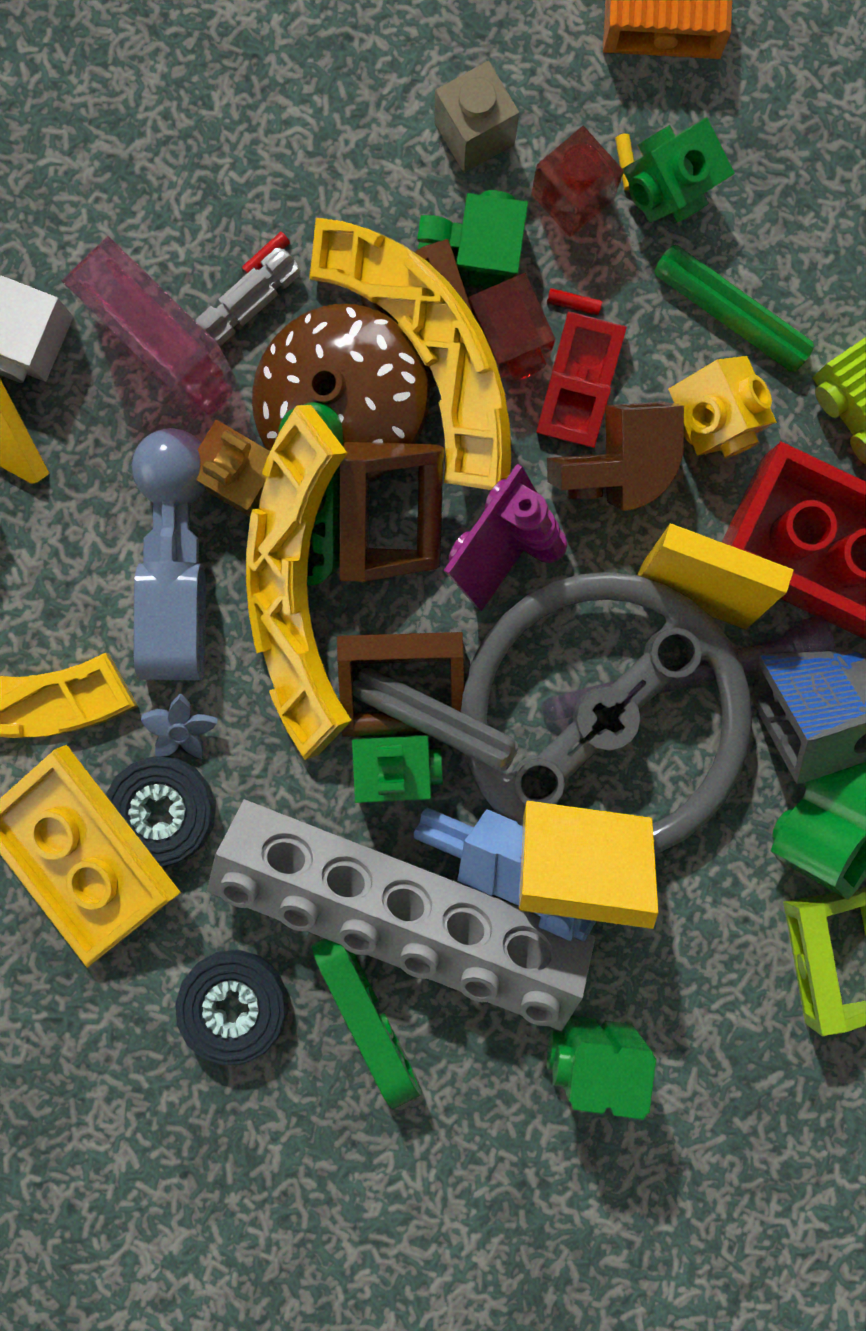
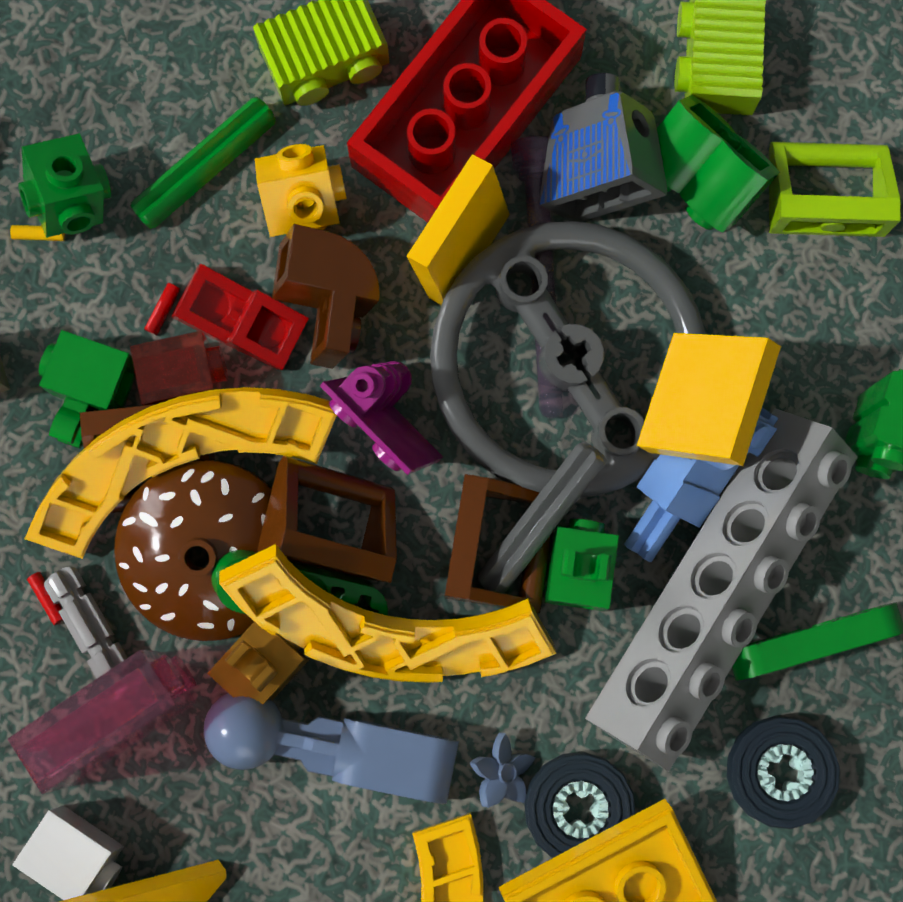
camera: 75 degrees left, 5 degrees down
(576, 181) = (49, 281): clear red brick -> none

